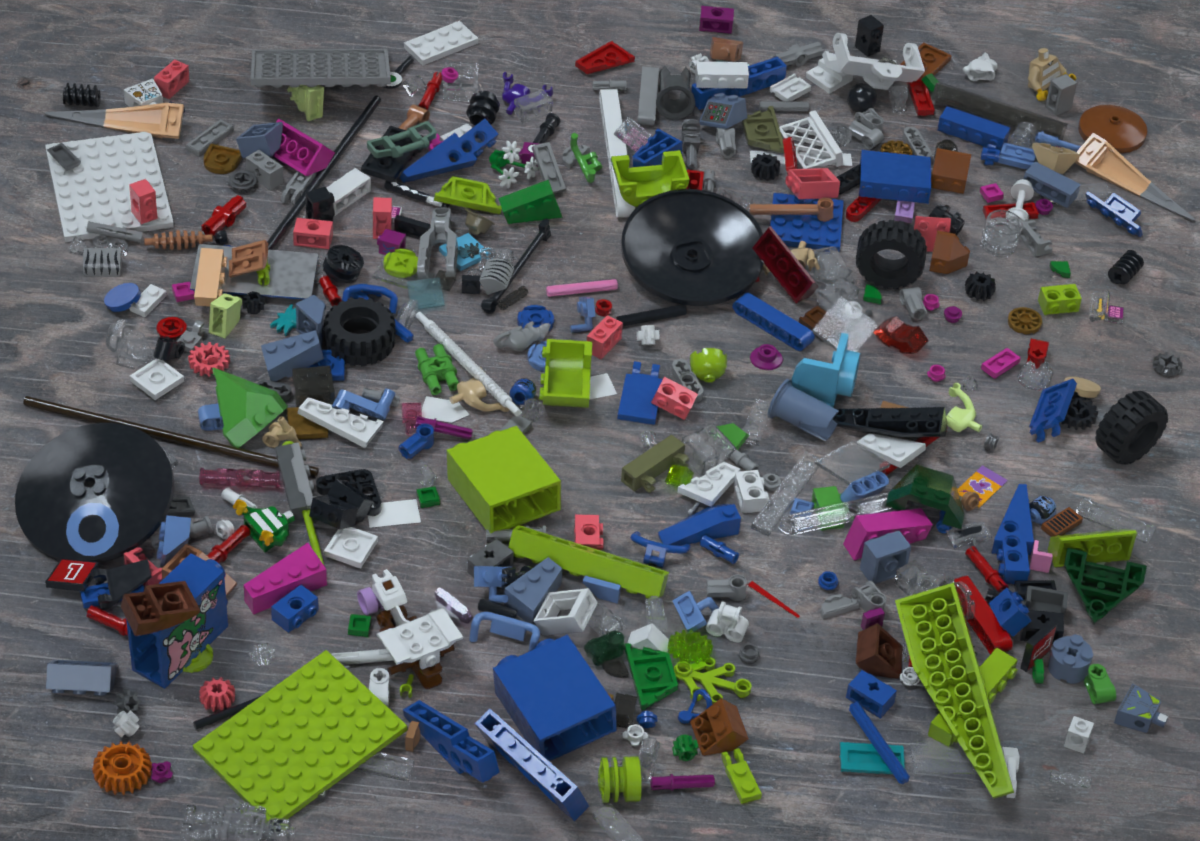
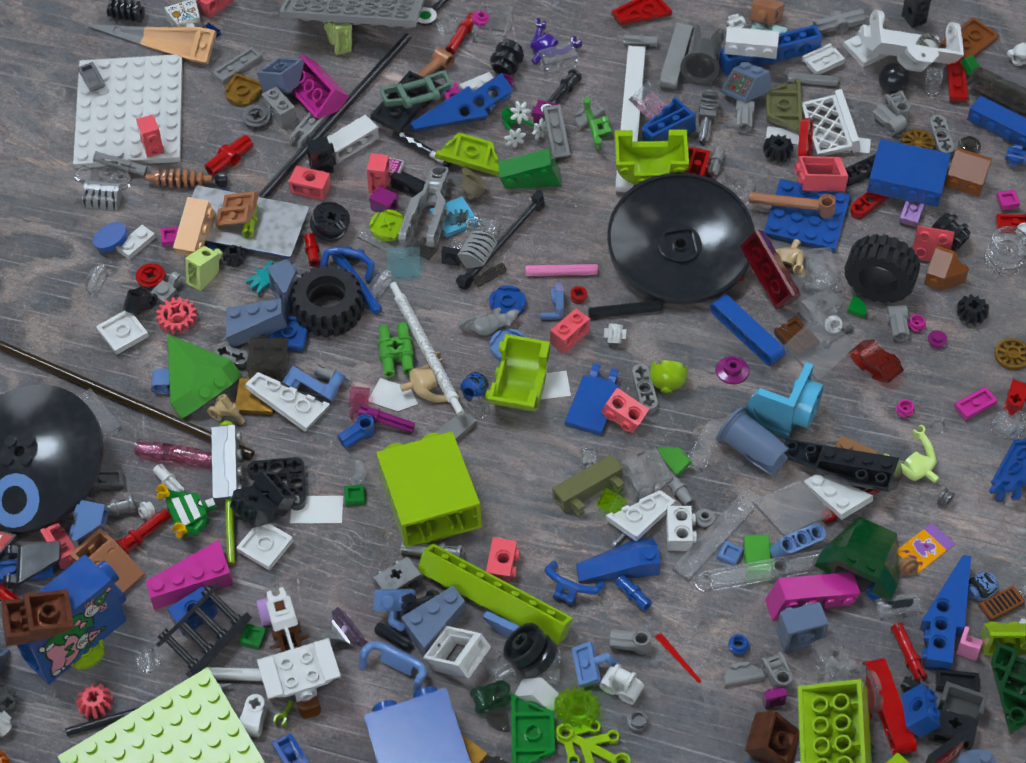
camera: 15 degrees right, 10 degrees up
(332, 626) = (224, 636): none -> black fence
(635, 602) = (530, 650): none -> black wheel

